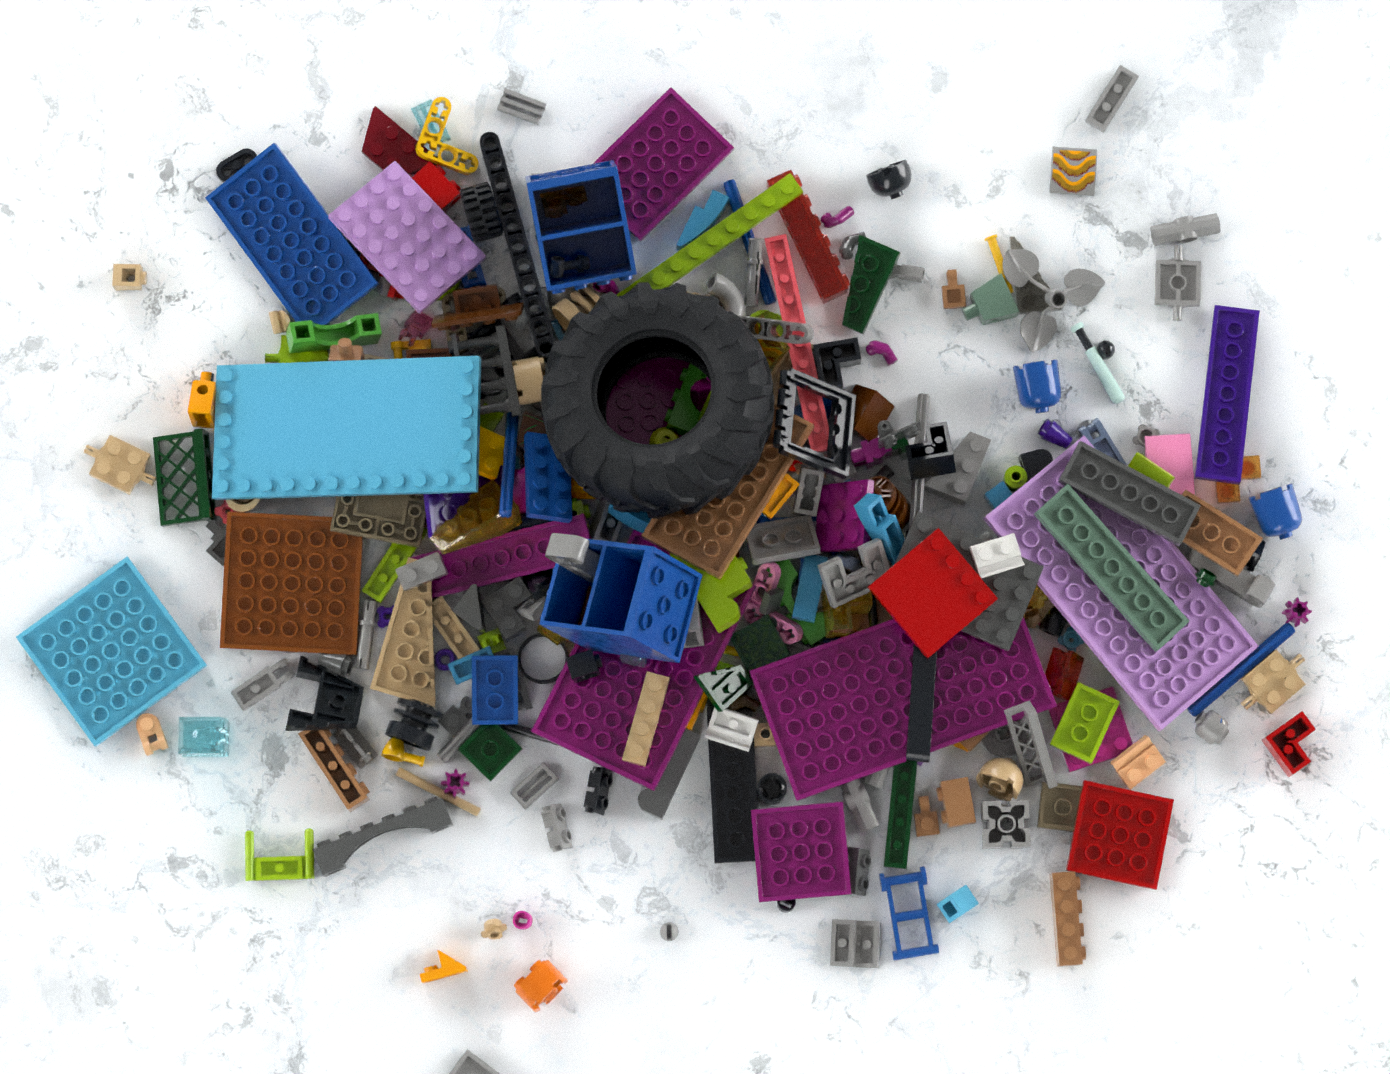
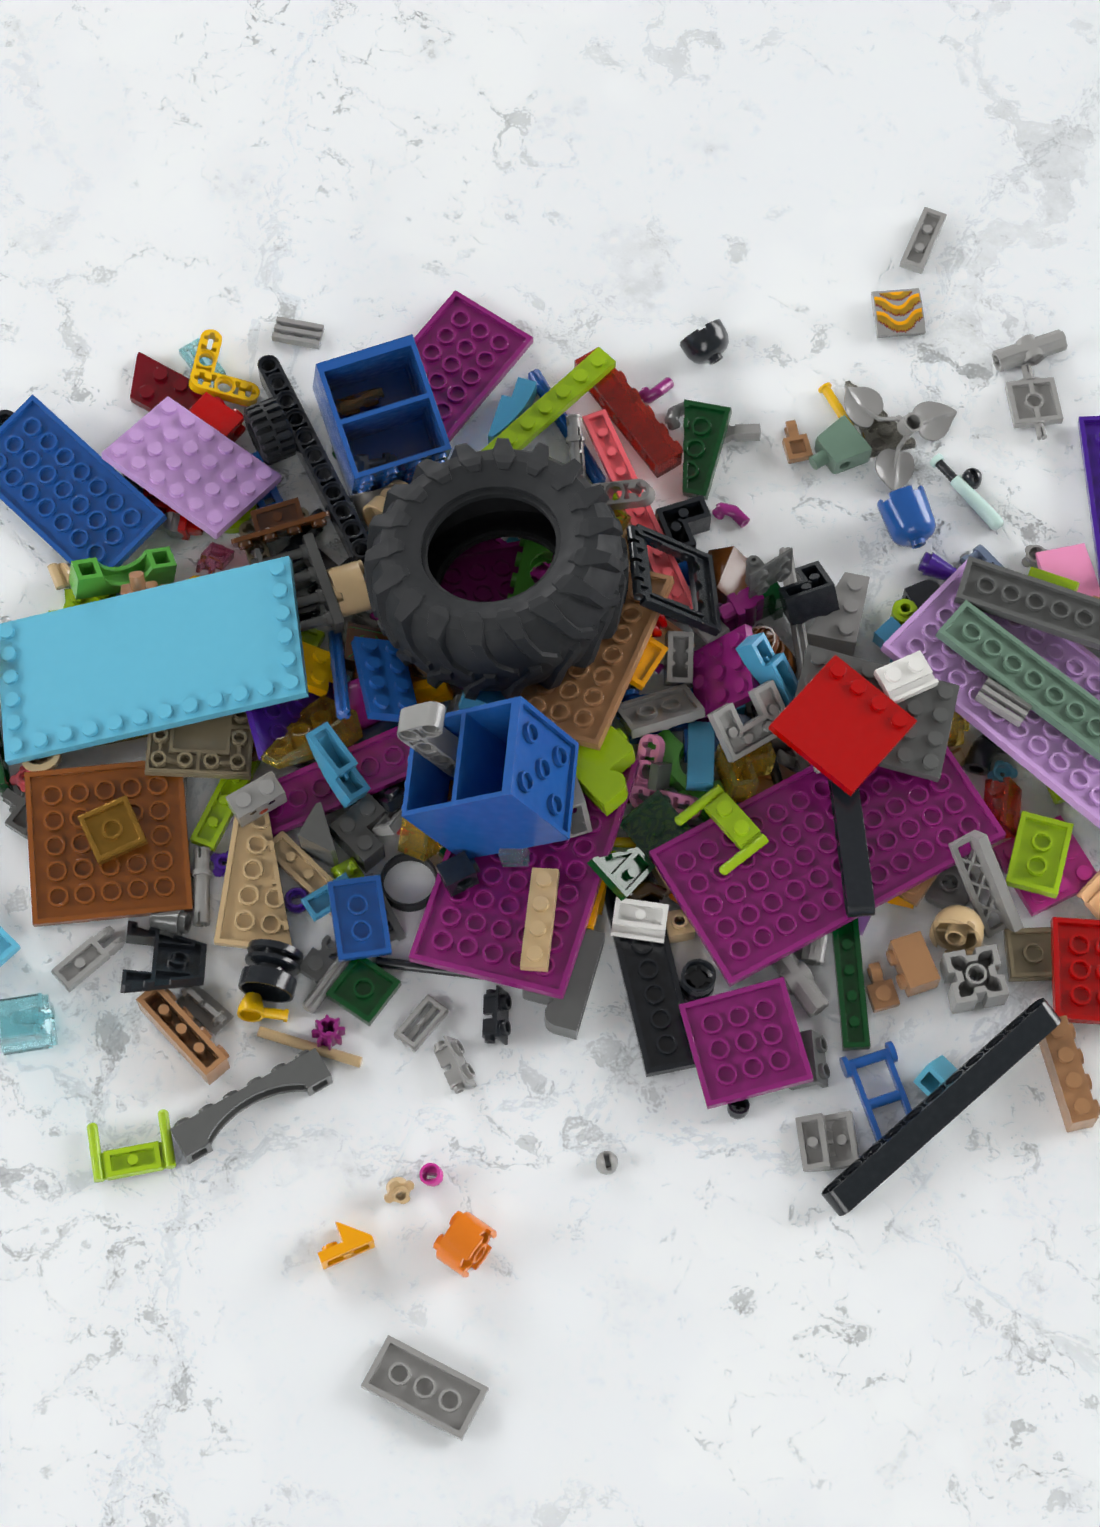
camera: 10 degrees left, 15 degrees down
(296, 577) = (112, 830): none -> pearl gold plate
(494, 553) = (337, 765): none -> dark azure slope
(824, 657) = (731, 821): none -> lime plate
(954, 934) = (941, 1107): none -> black beam
(1083, 576) = (1004, 699): none -> light grey tile

